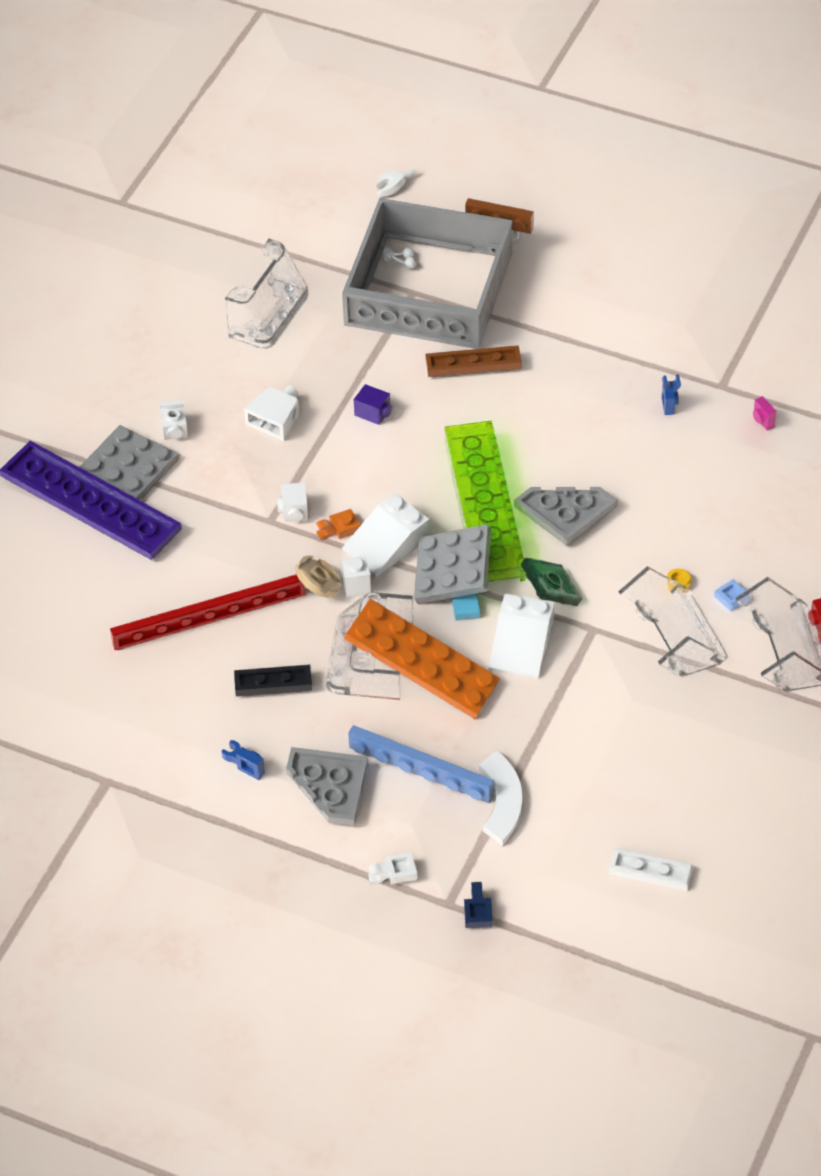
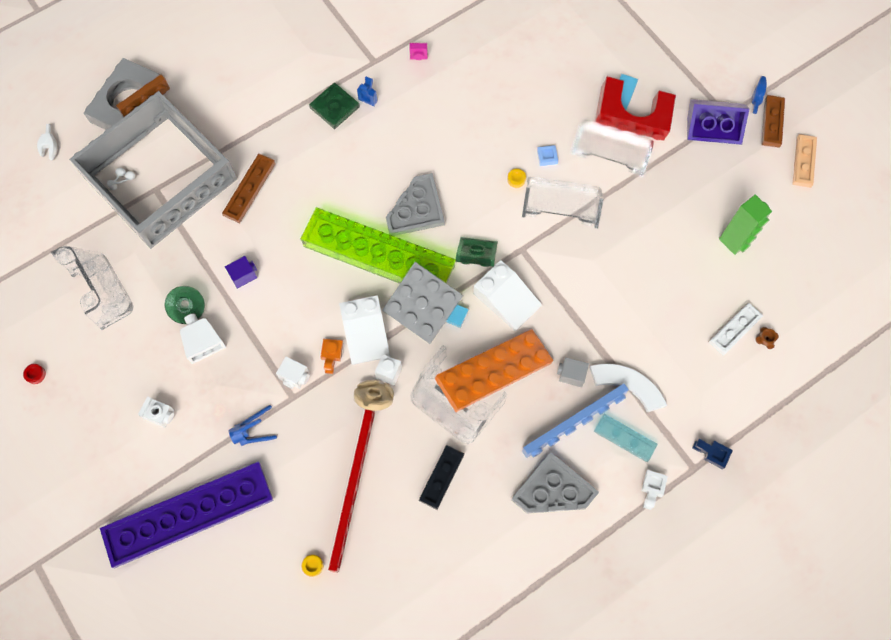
camera: 60 degrees left, 20 degrees up
(106, 621) = (312, 565): none -> yellow tile
(130, 462) = (170, 466): light grey plate -> none
(145, 312) = (34, 373): none -> red tile
(201, 495) = (240, 431): none -> blue plant
(247, 761) = (506, 533): blue plate -> none
(296, 371) = (176, 310): none -> clear green dish
(436, 821) = (625, 438): none -> clear light blue tile
(476, 736) = (573, 372): none -> light grey brick
(512, 193) = (124, 77): none -> light grey arch
(634, 380) = (334, 105): none -> clear green plate
(661, 896) = (771, 334): none -> dark orange plate
(771, 791) = (746, 225): none -> bright green brick

